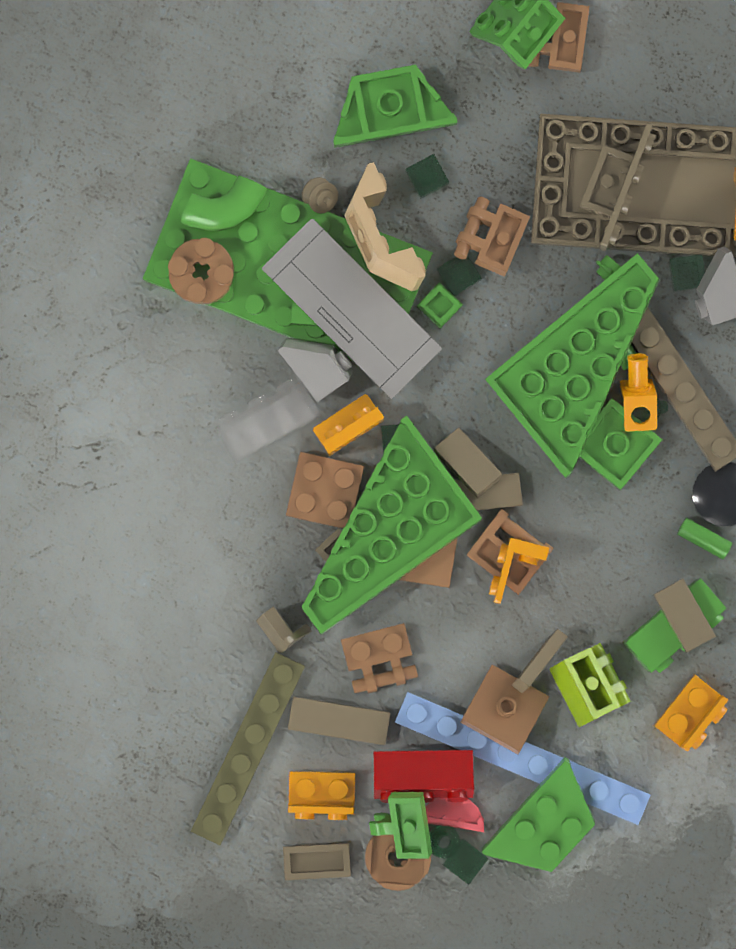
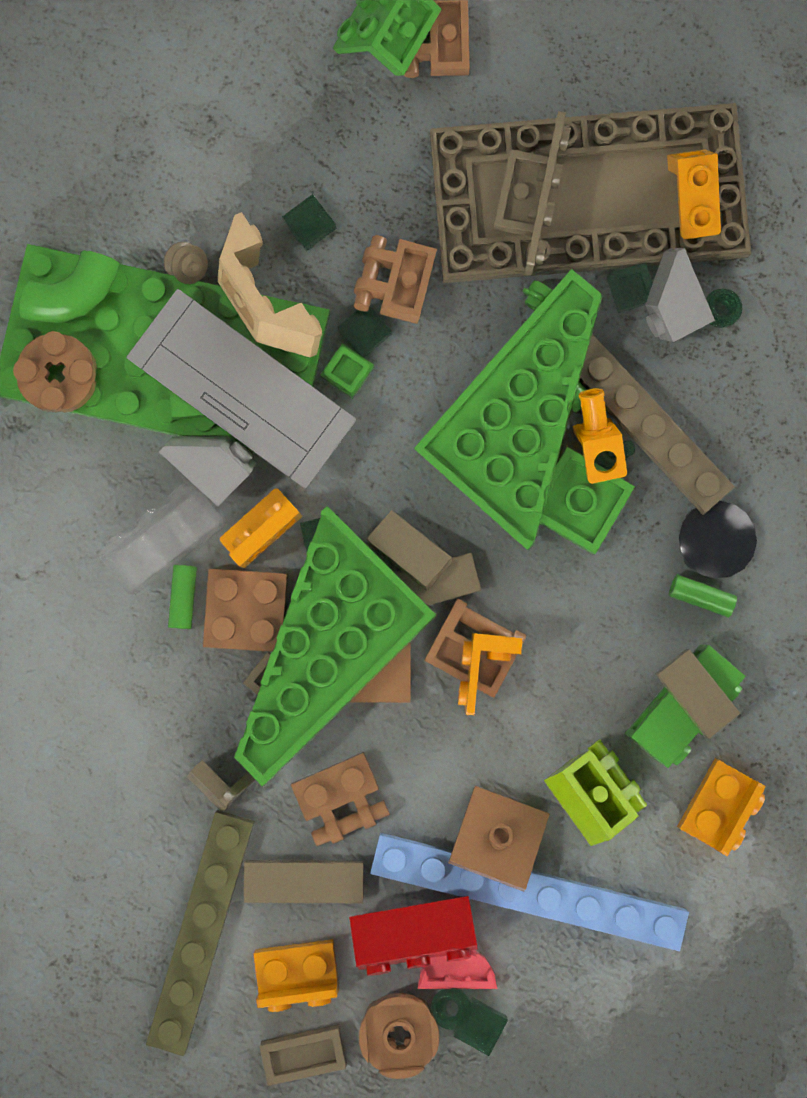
camera: 10 degrees left, 0 degrees up
(274, 471) = (182, 597): none -> bright green hinge
(390, 106) = (253, 147): bright green wing -> none
(406, 823) = (403, 1000): bright green plate -> none
(539, 661) = (531, 774): dark tan tile -> none
(545, 823) = (569, 968): bright green wing -> none

